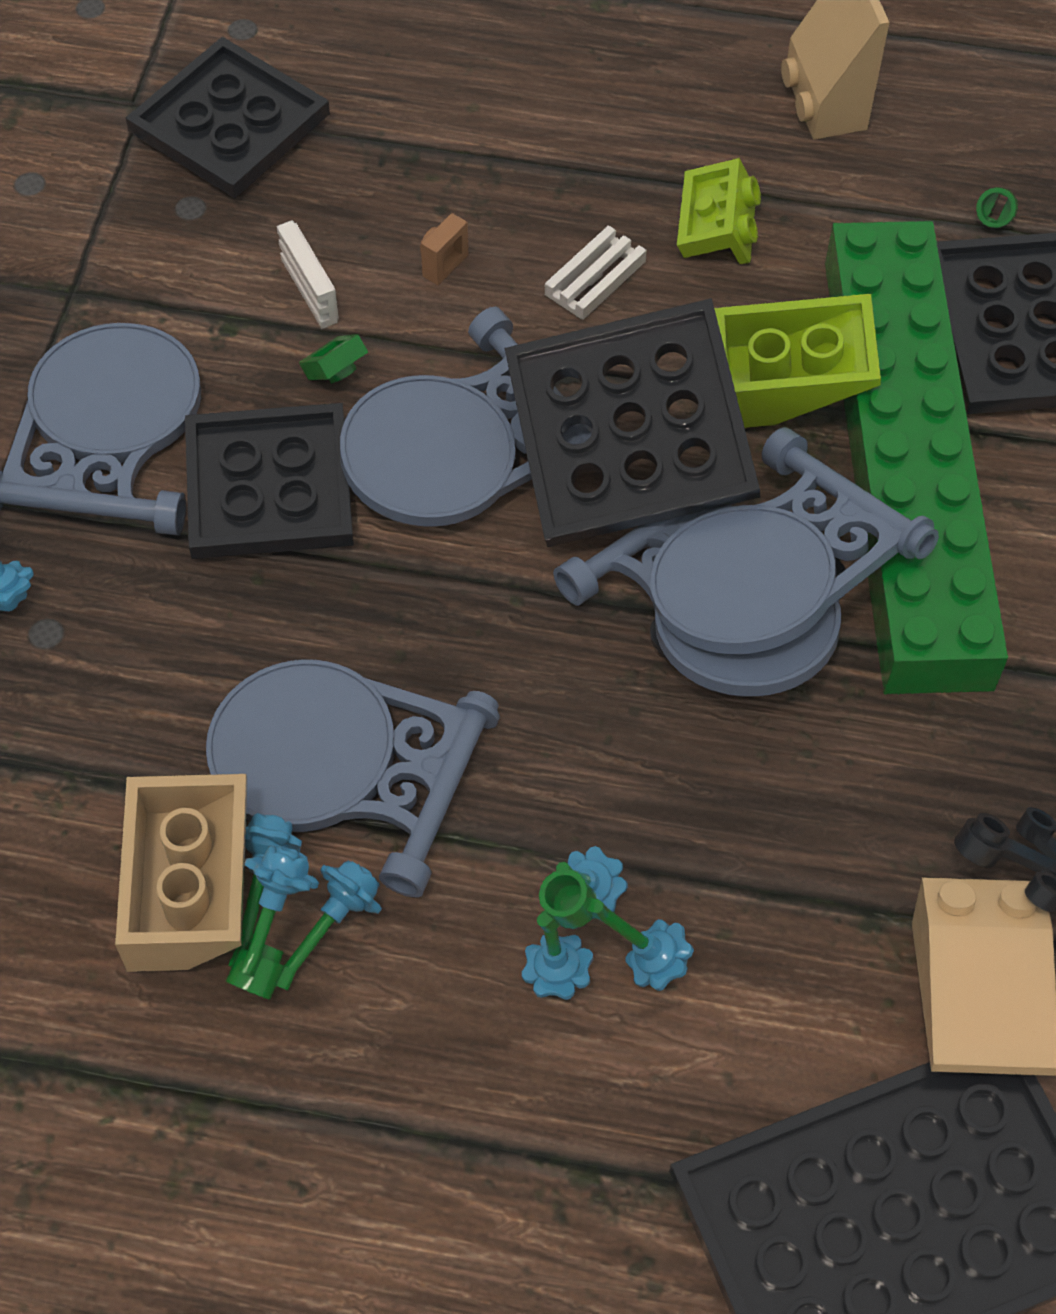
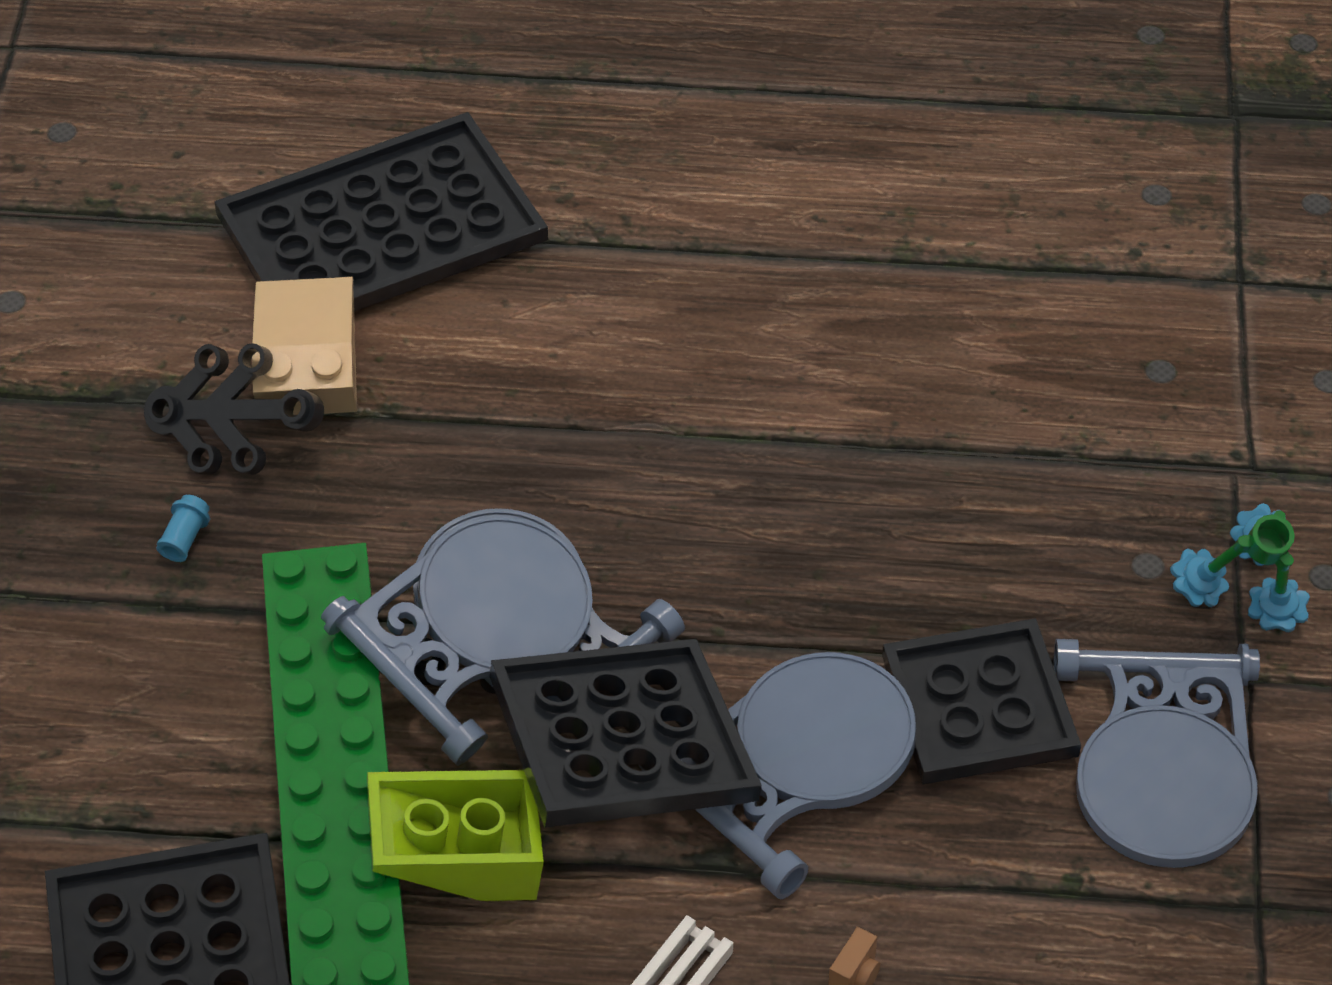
camera: 175 degrees right, 10 degrees down
(181, 870) = (959, 356): tan slope -> none
(281, 871) = (868, 319): plant -> none
(308, 274) = (999, 921): white tile -> none
(325, 745) = (869, 482): sand blue piece -> none
(334, 359) = (946, 827): green plate -> none
(589, 890) = (642, 342): dark azure plant -> none

